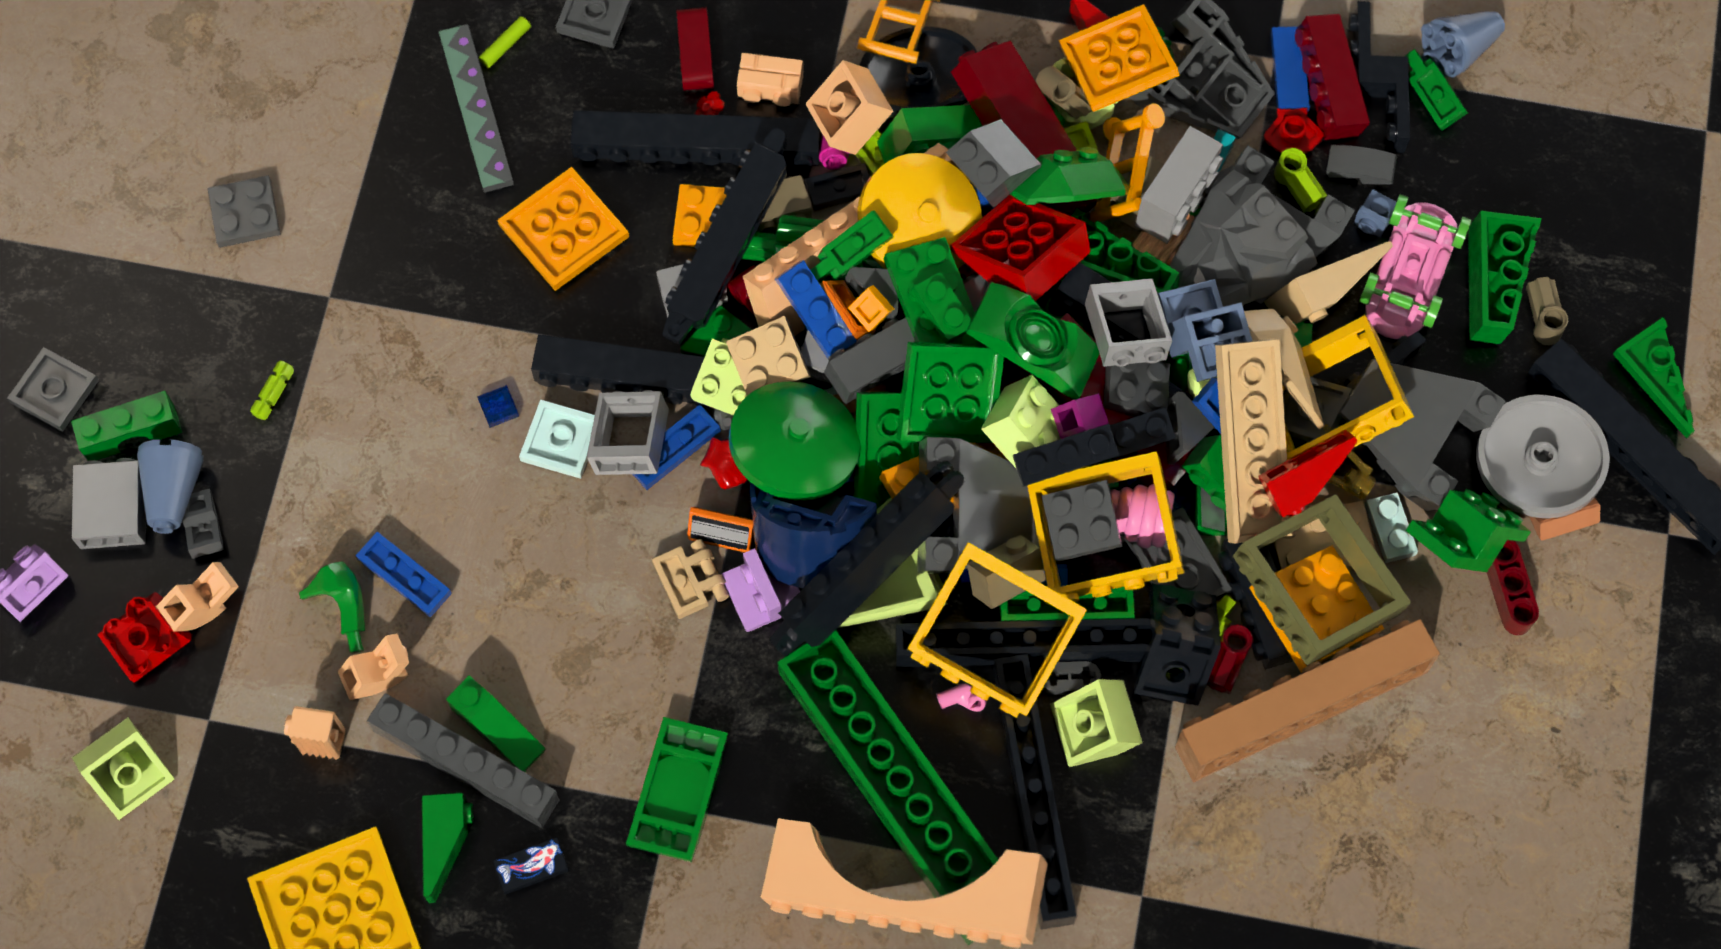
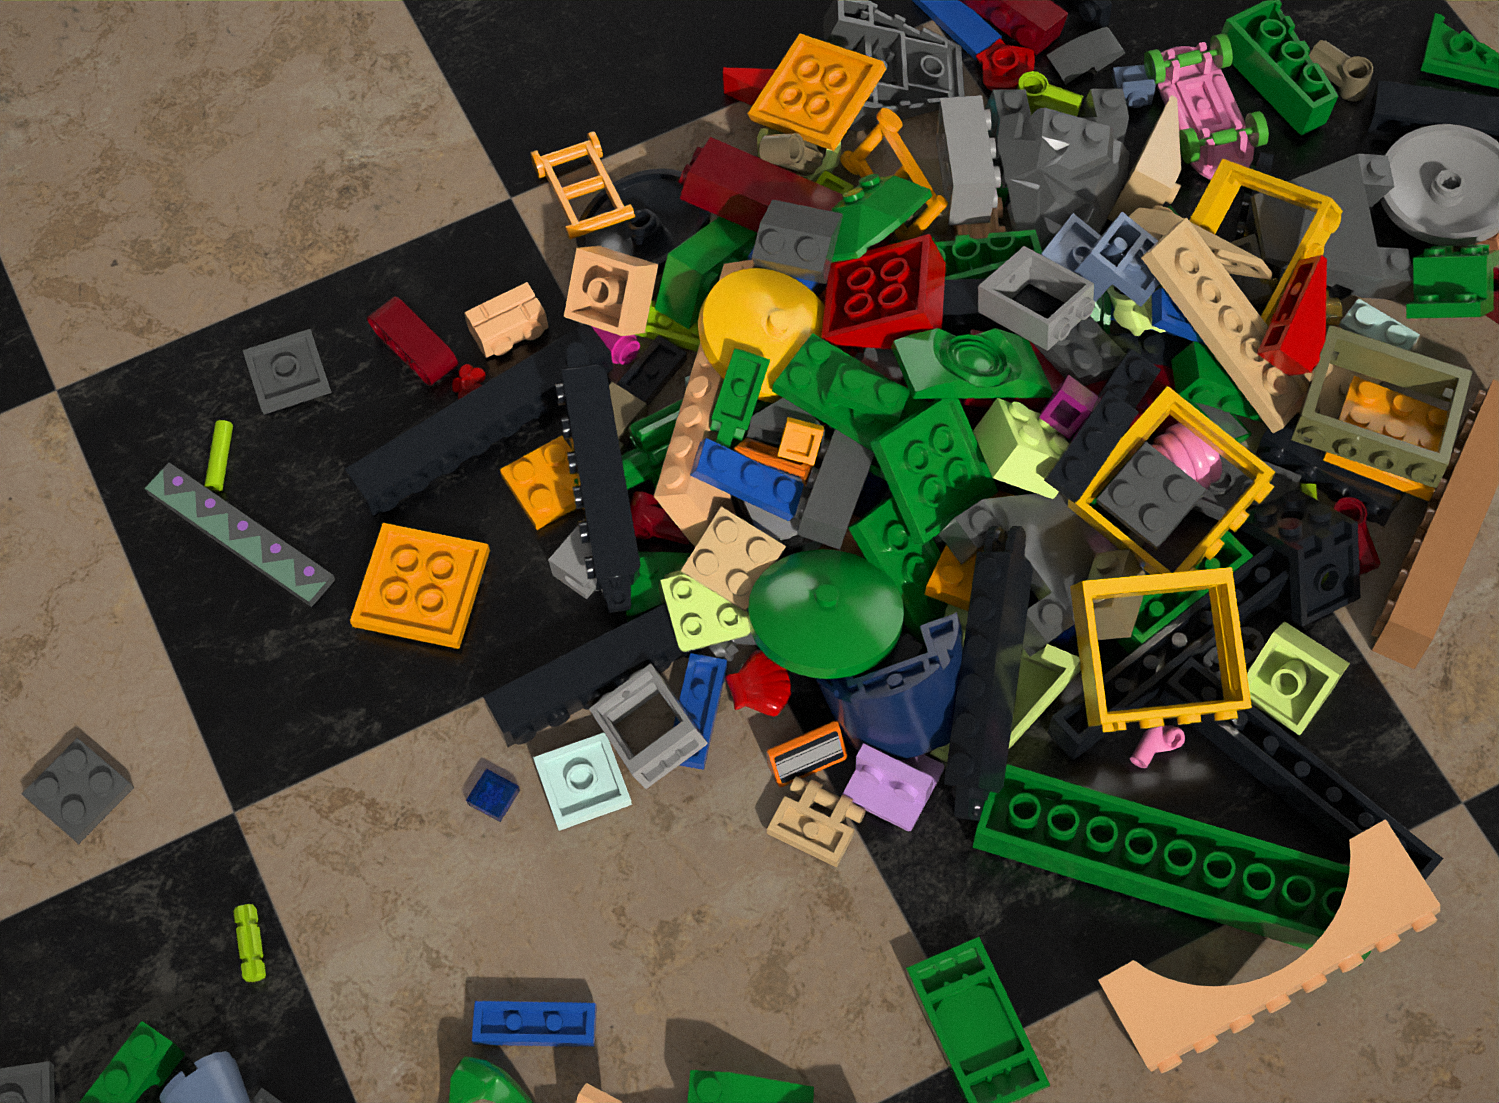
camera: 35 degrees left, 5 degrees down
(1188, 426) = (1160, 351): dark grey slope -> none

